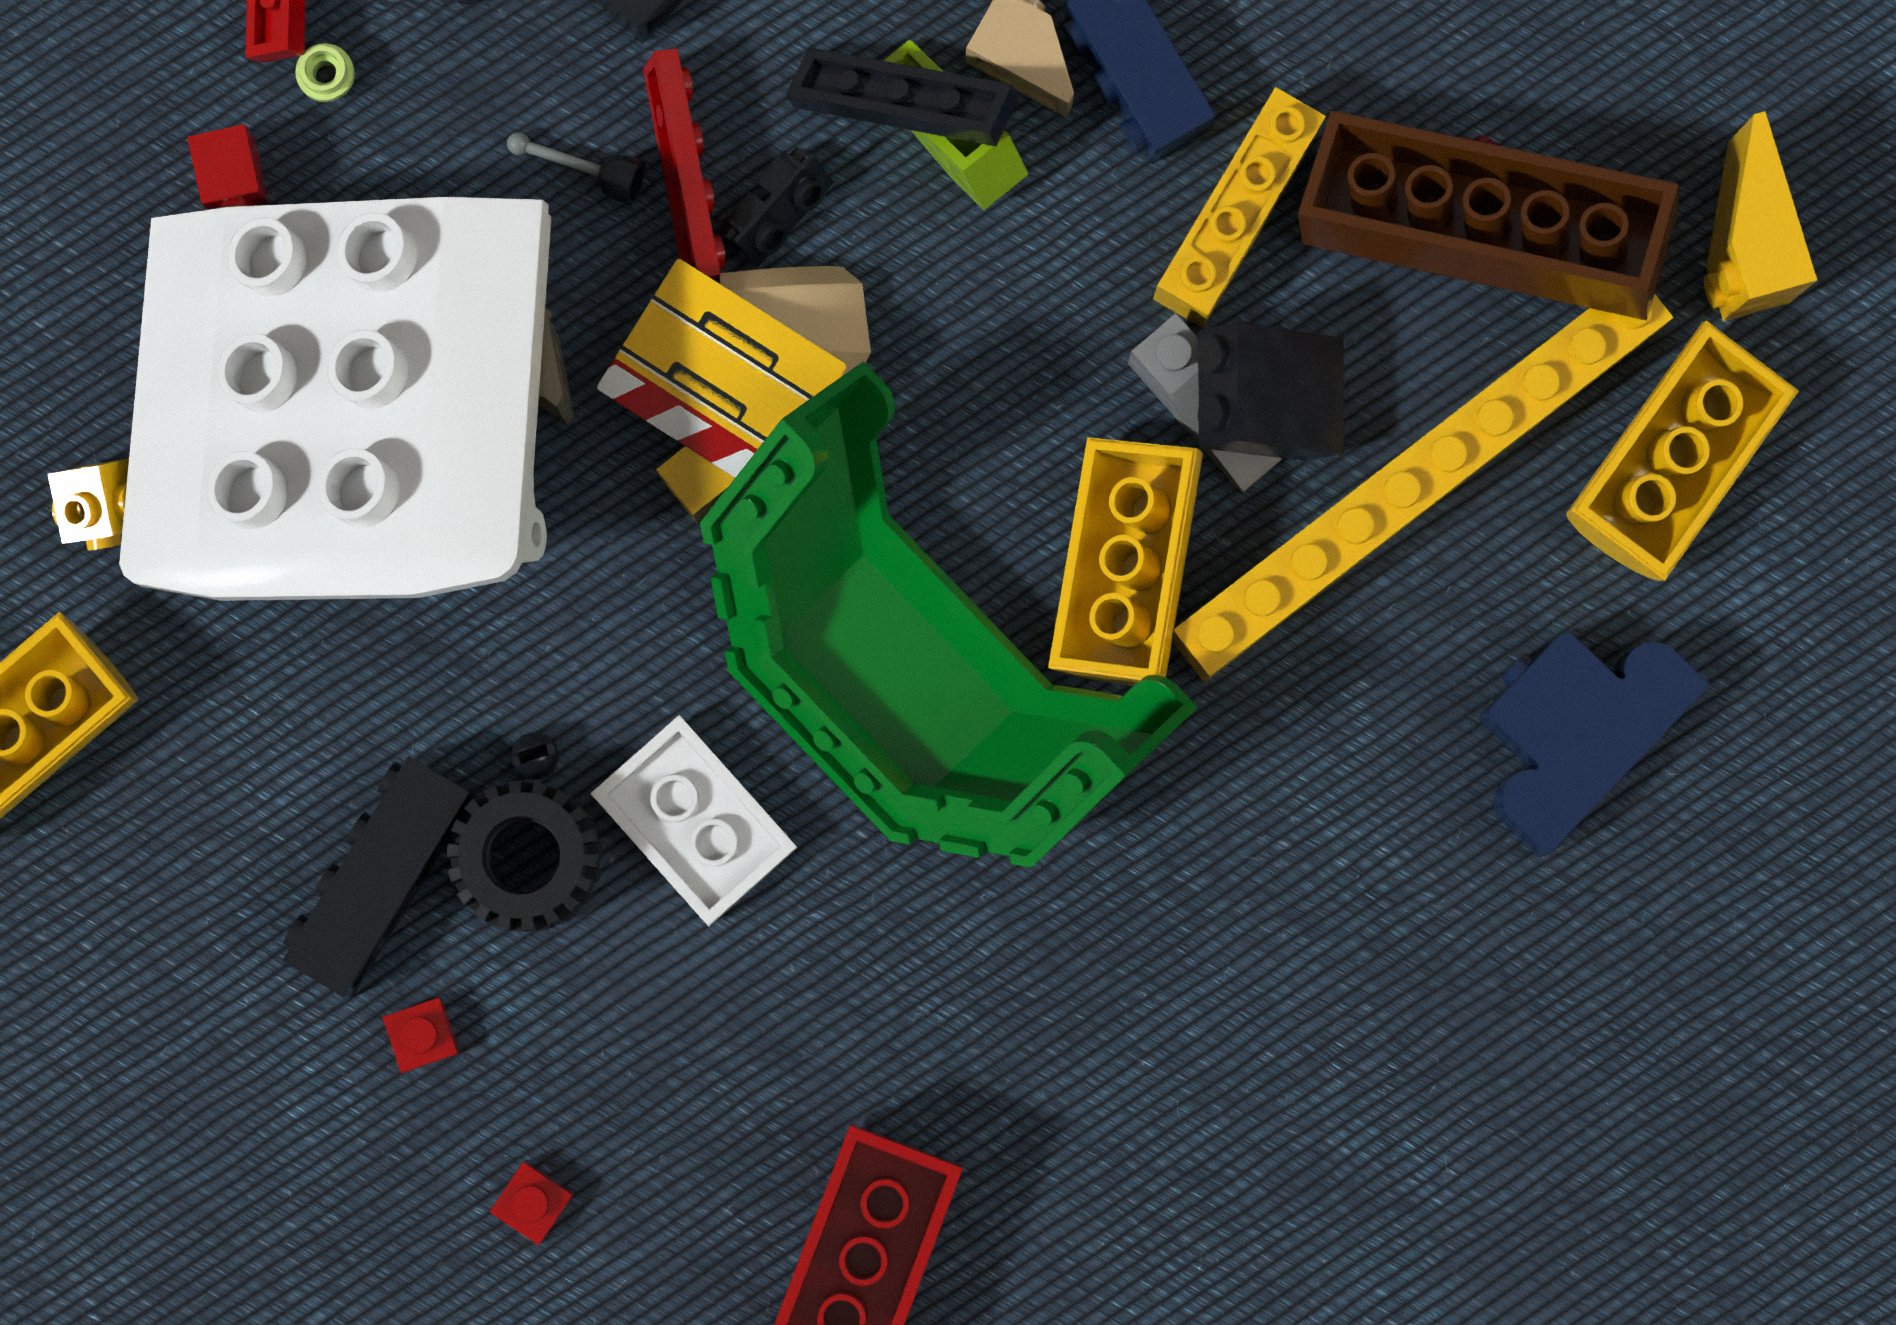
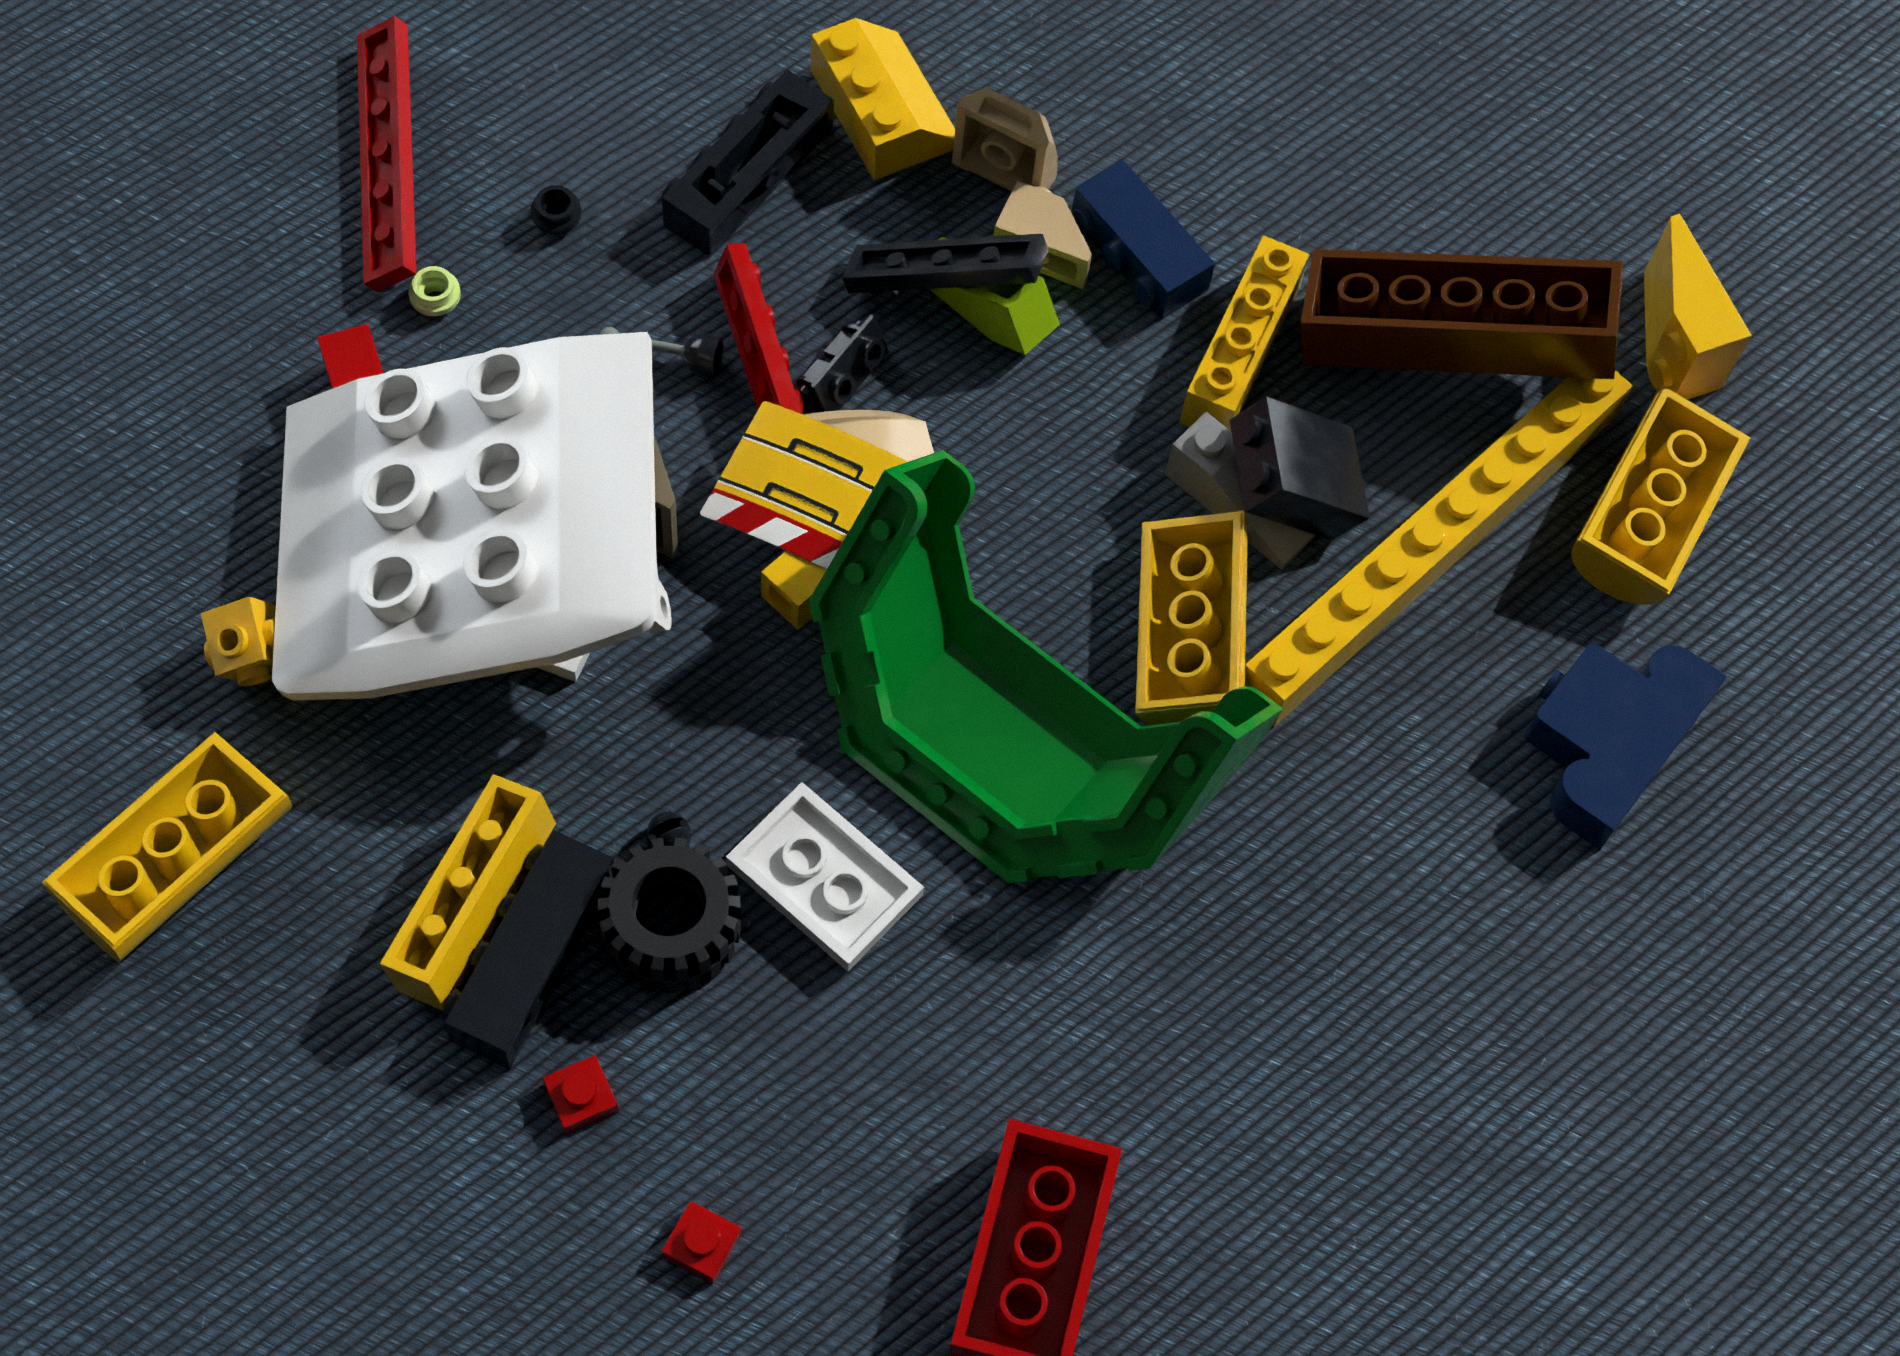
camera: 10 degrees left, 20 degrees down
(315, 815) = (467, 891): none -> yellow brick

